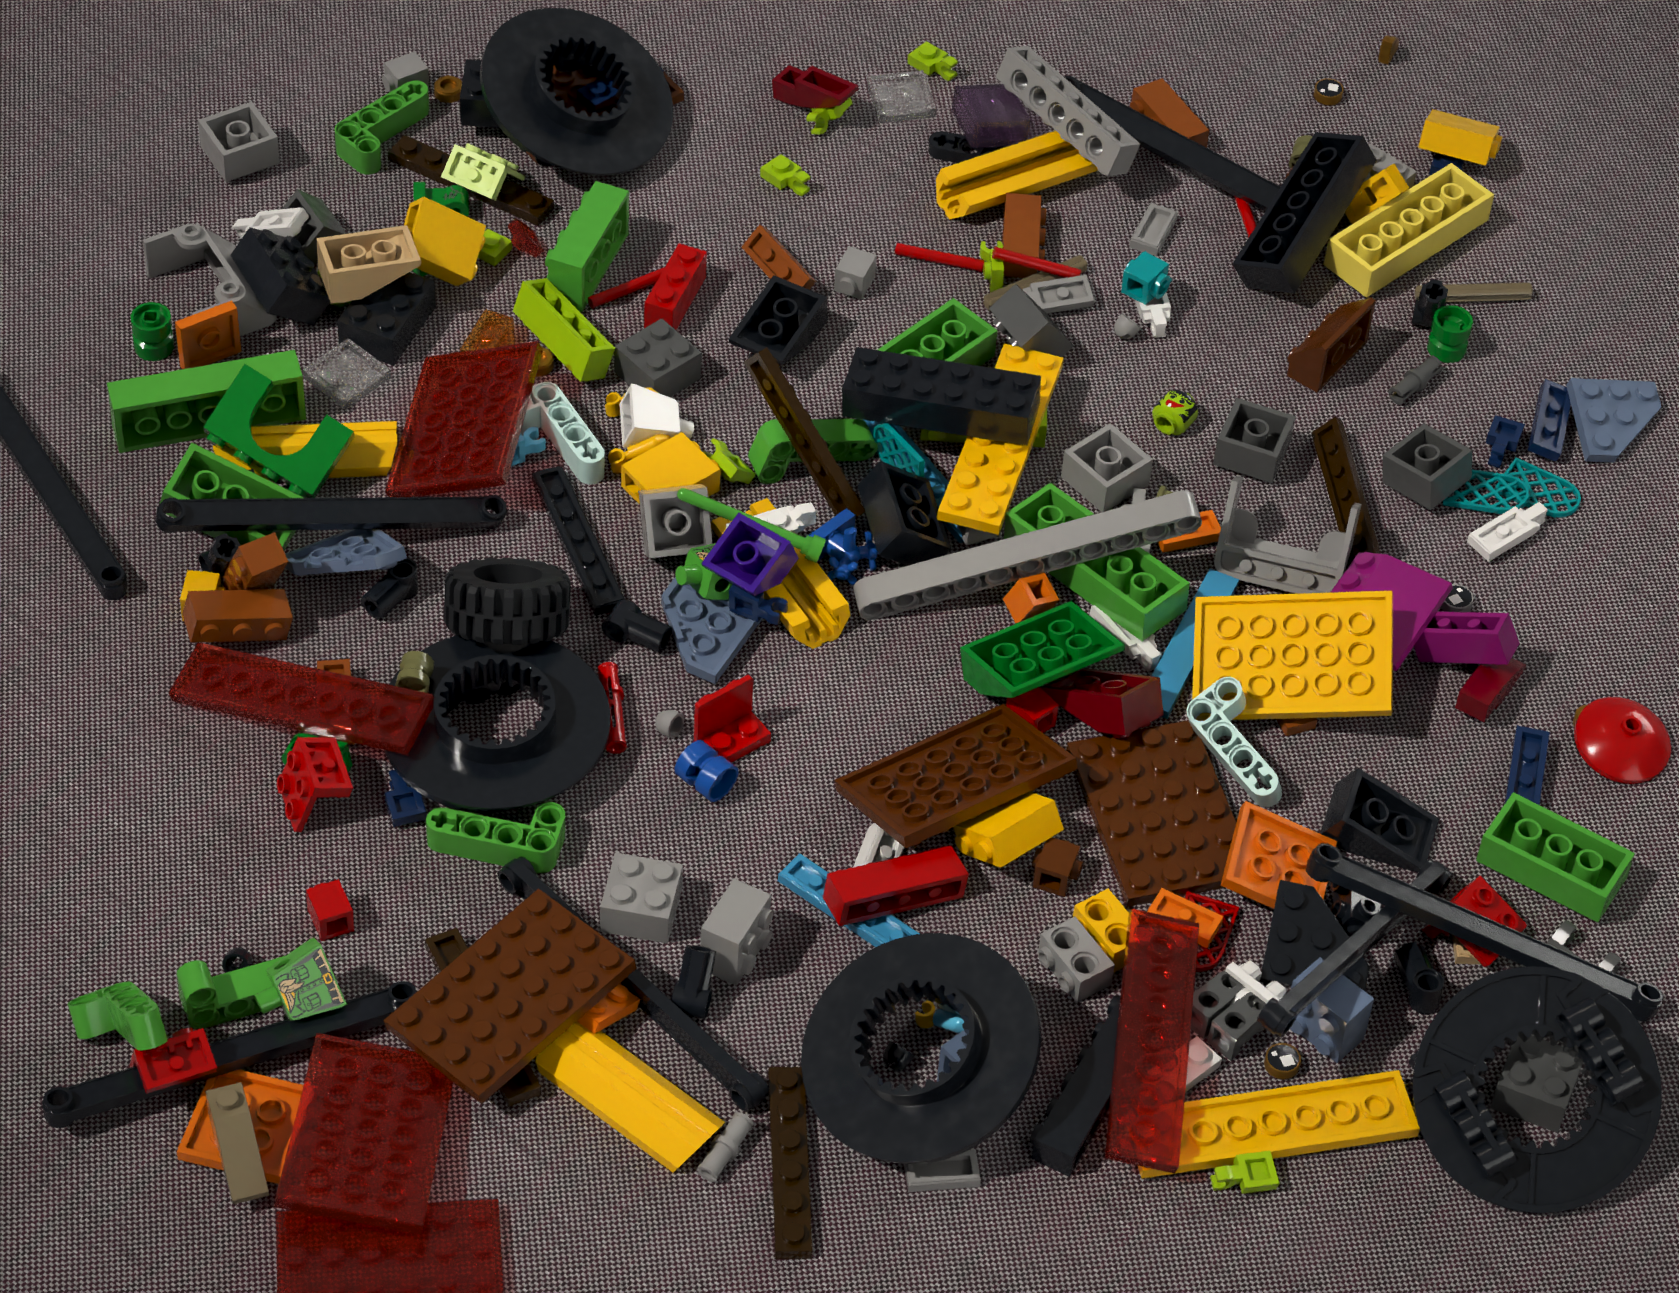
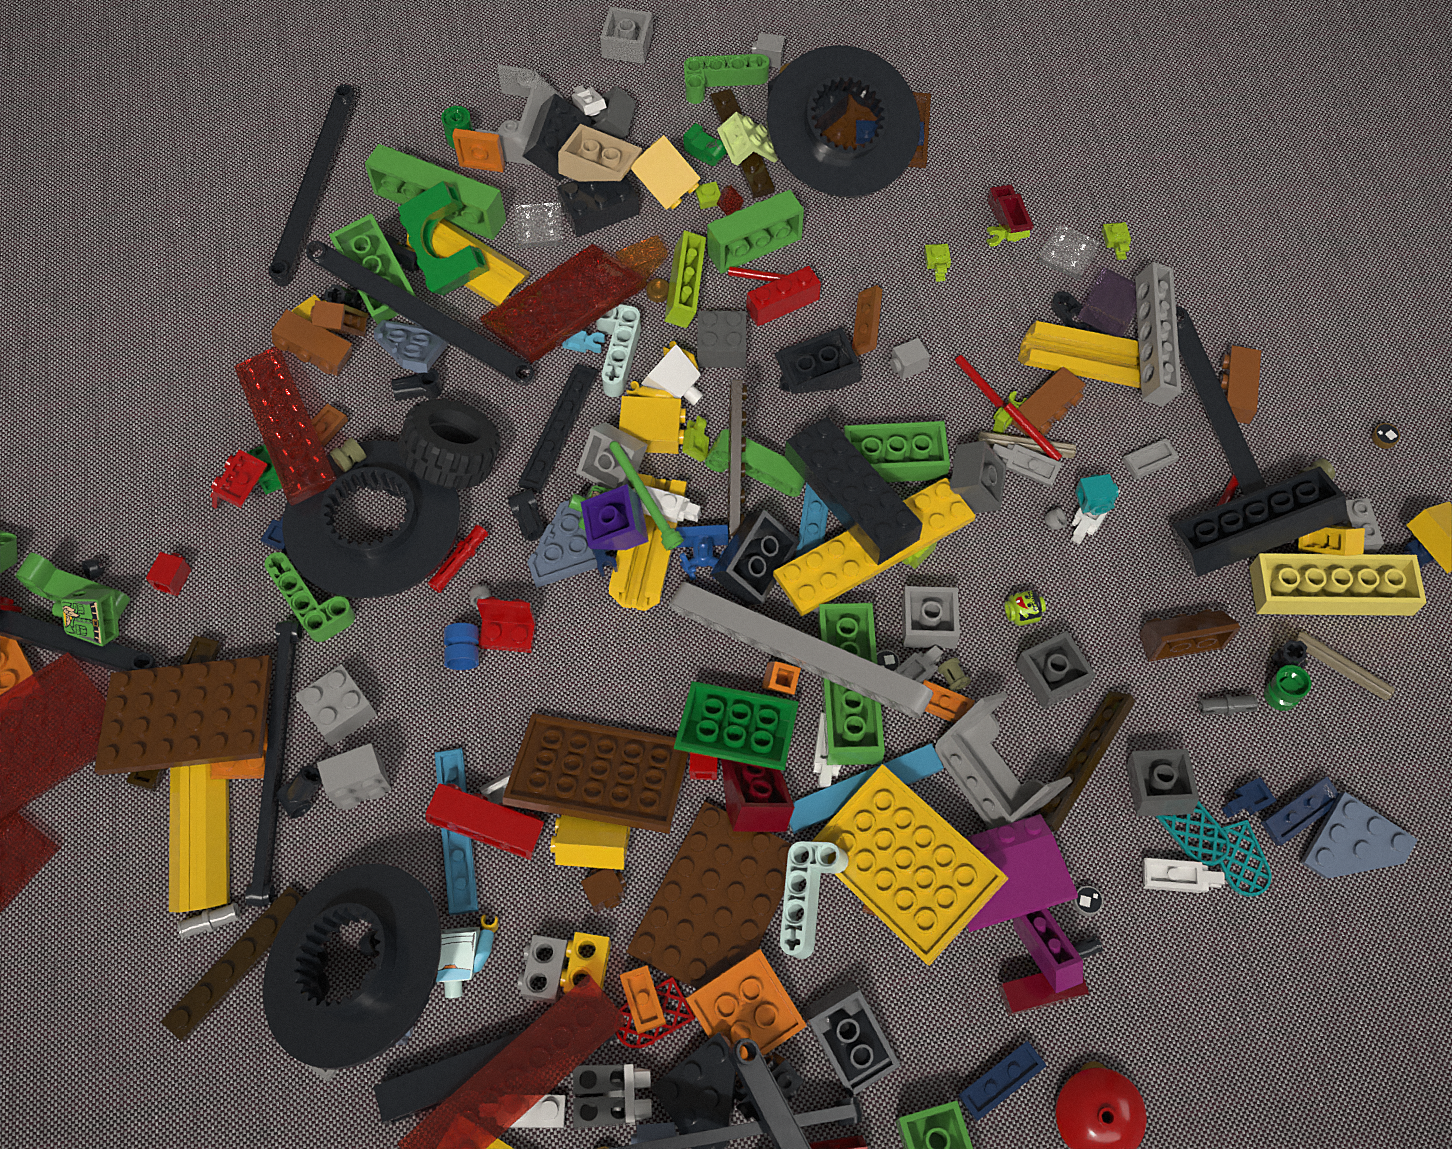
camera: 45 degrees right, 15 degrees up
(886, 457) = (800, 509): teal window -> none

